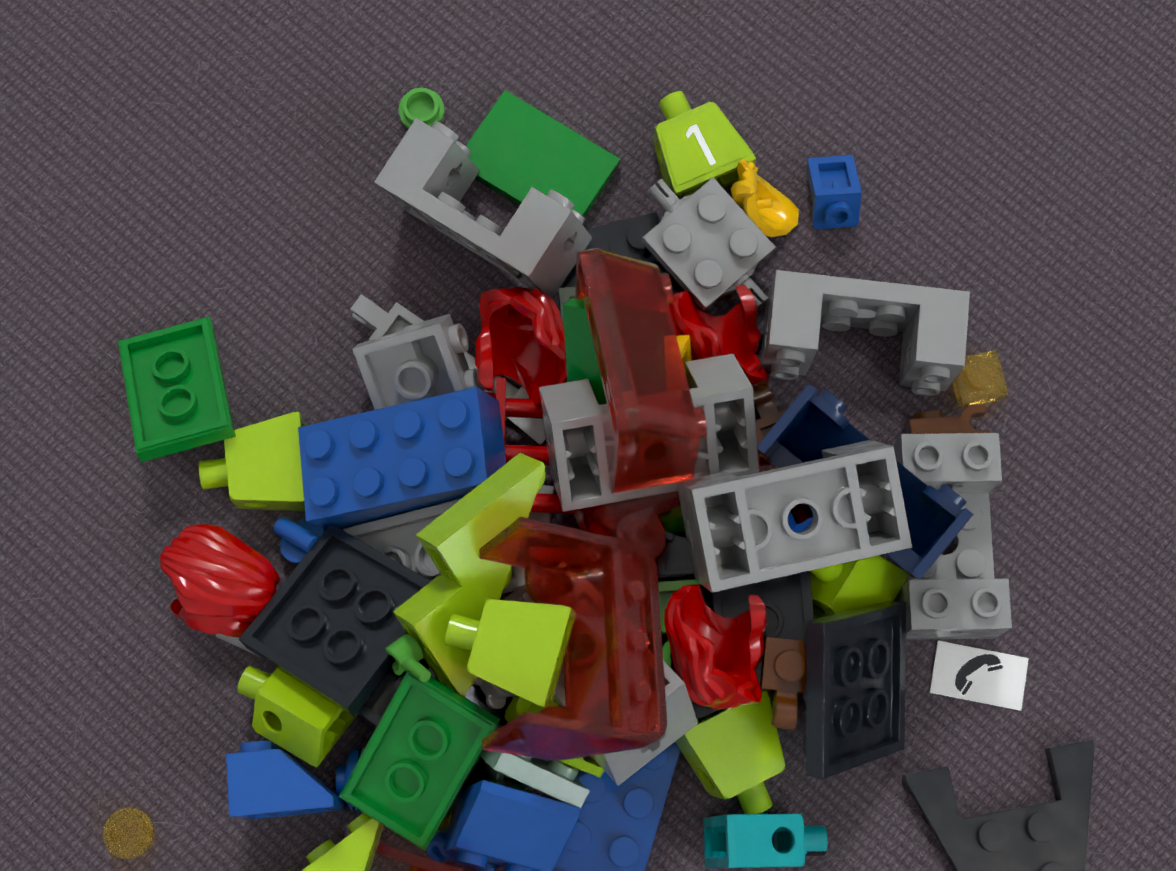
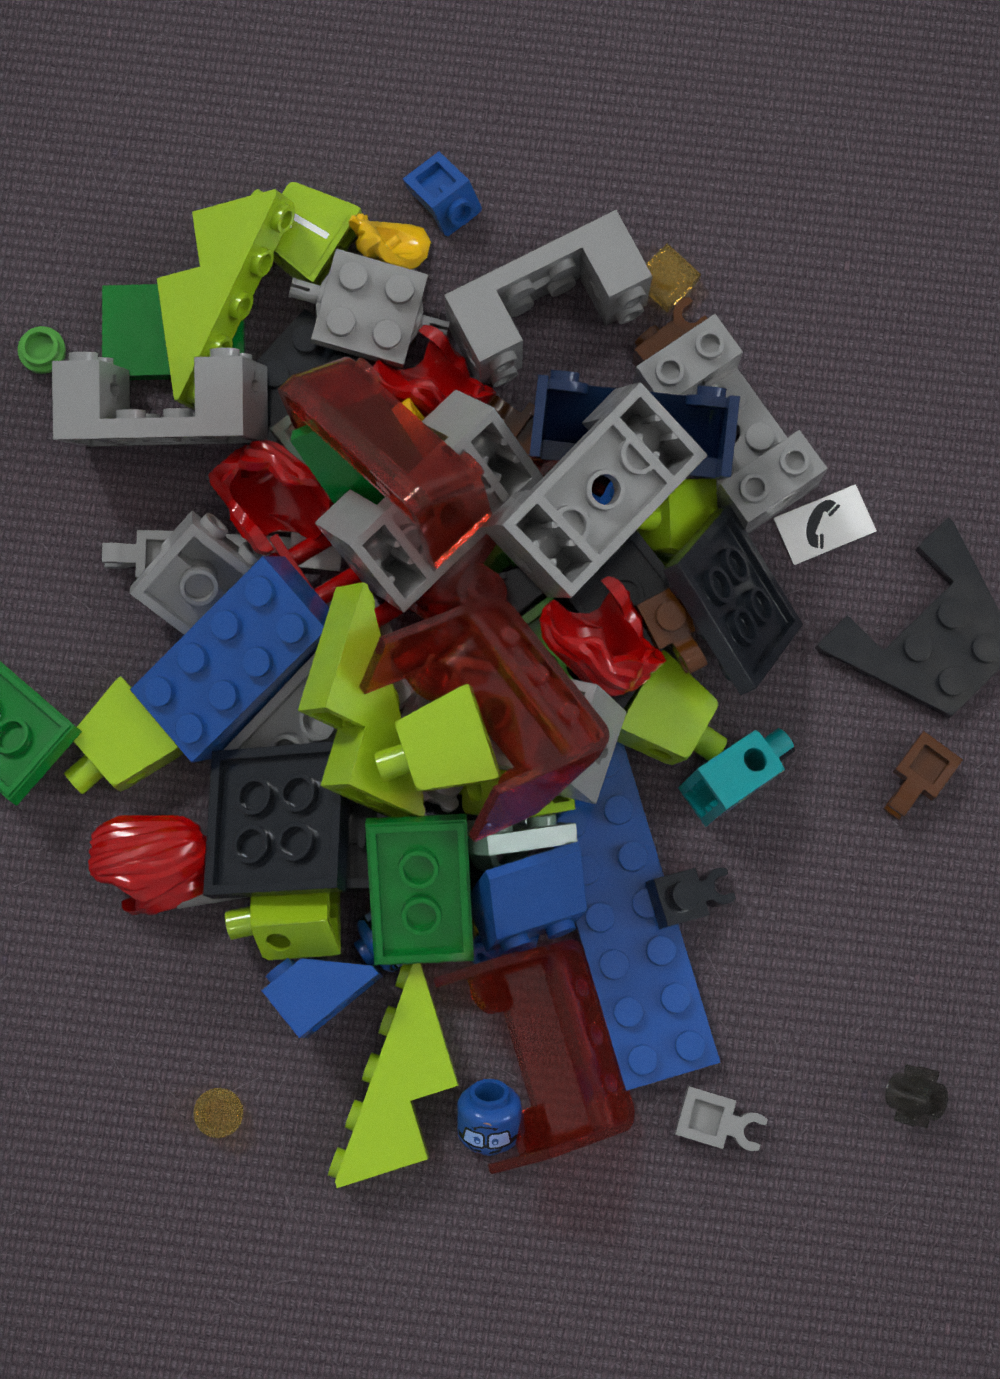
camera: 30 degrees left, 5 degrees up
(296, 538) = (191, 782): blue plate -> none
(407, 656) = (357, 813): bright green hand -> none
(585, 154) = (209, 301): none -> lime slope

